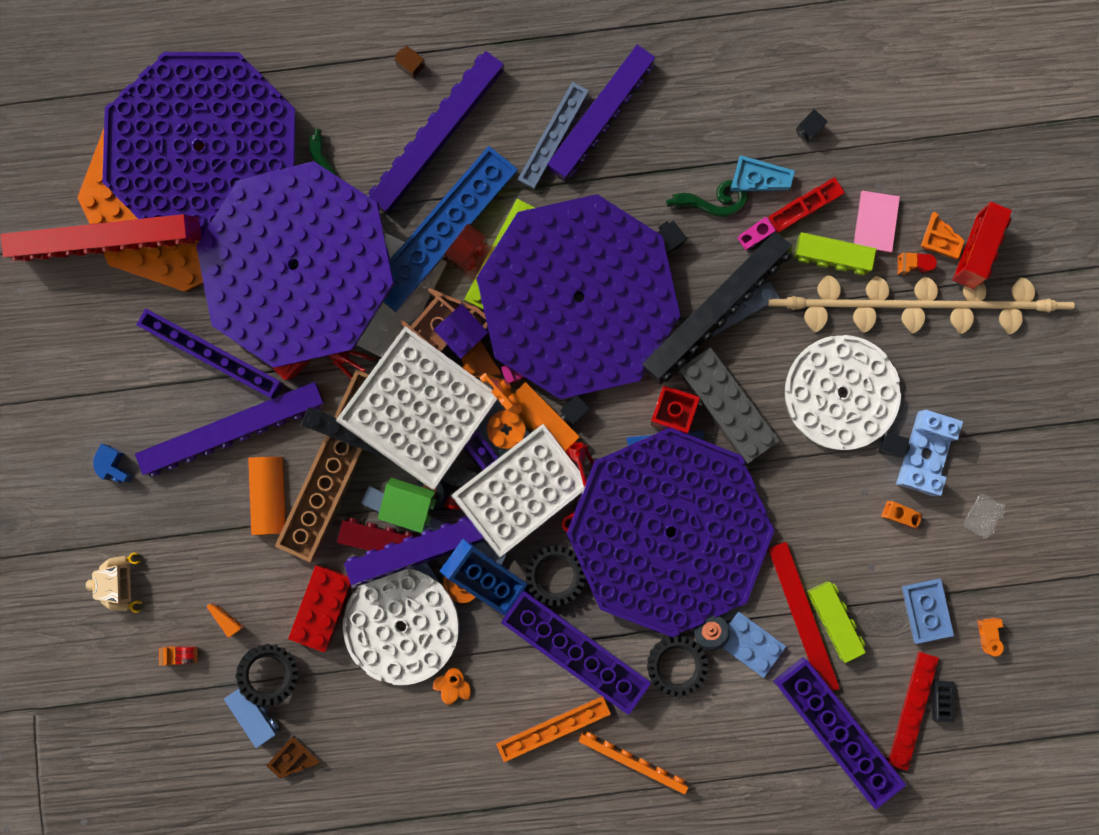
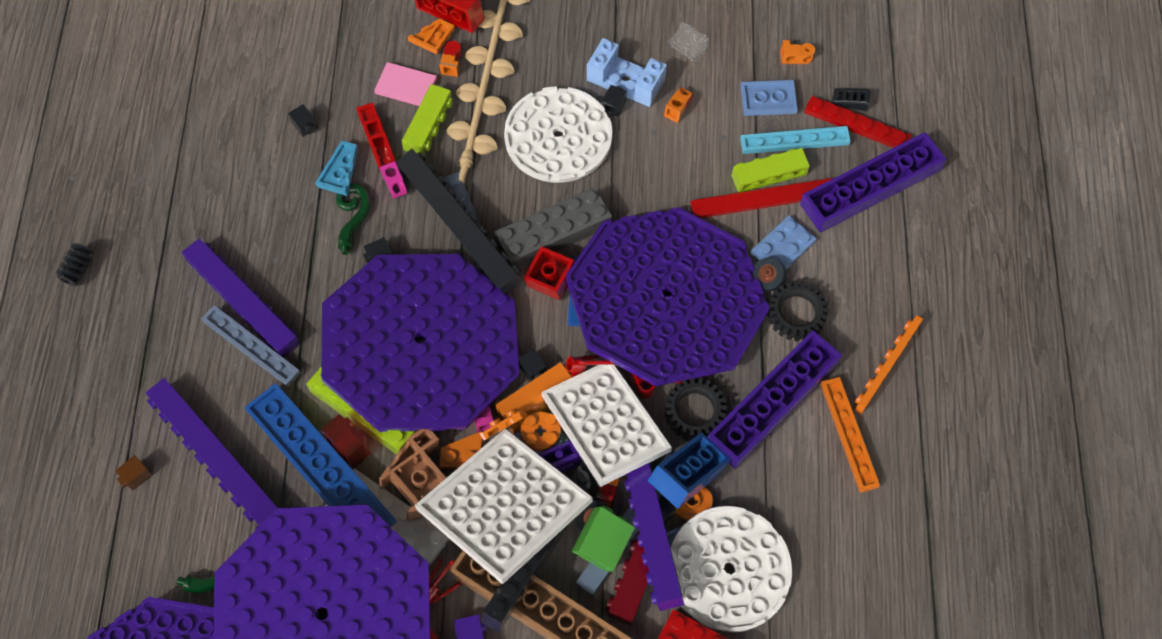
camera: 85 degrees left, 20 degrees down
(452, 689) = (800, 528): orange plate -> none
(460, 331) = (433, 455): dark purple slope -> none
(879, 645) = (795, 139): none -> medium azure plate

